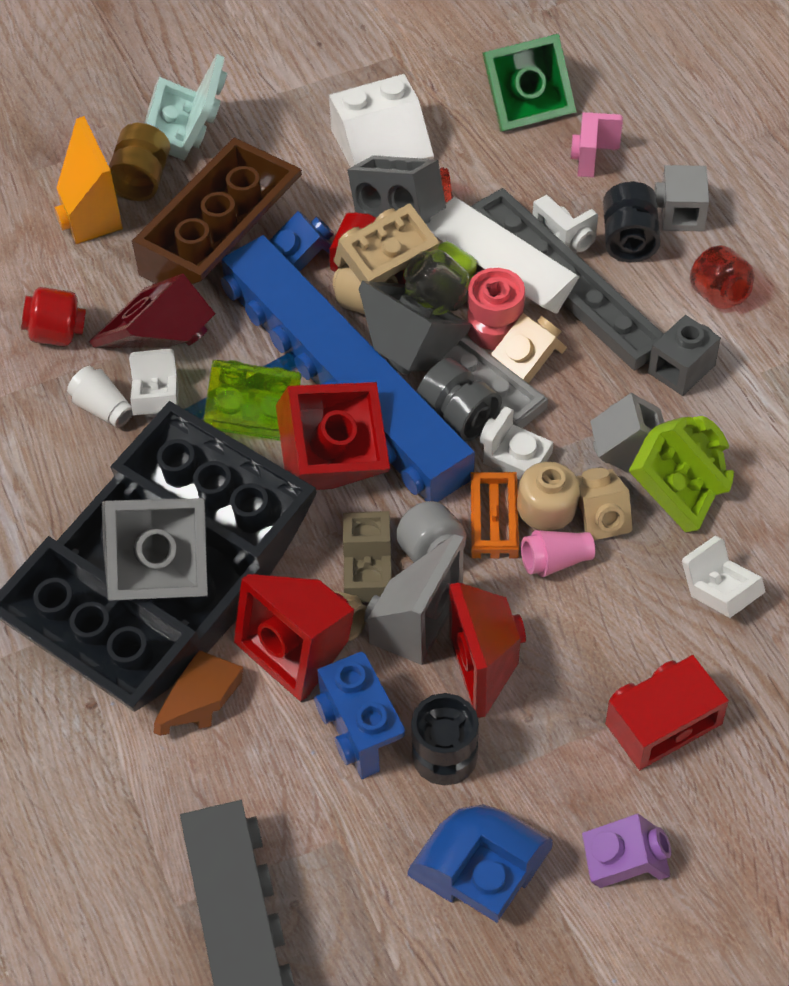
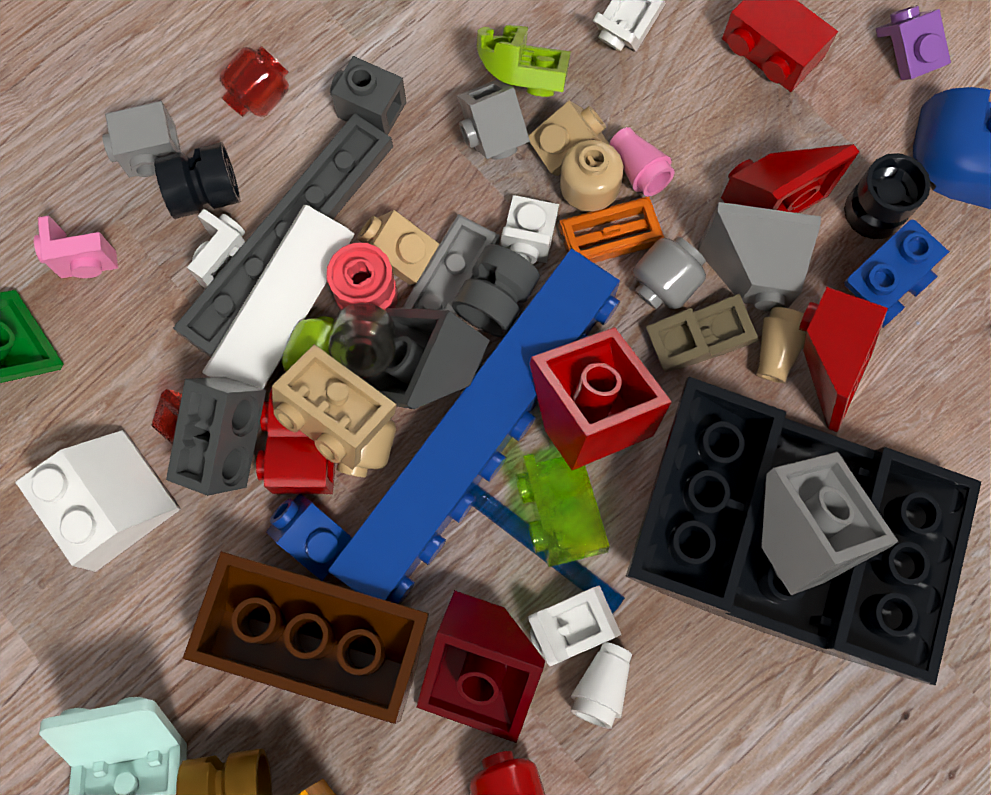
camera: 110 degrees left, 20 degrees up
(199, 692) = (917, 435): dark orange slope -> none

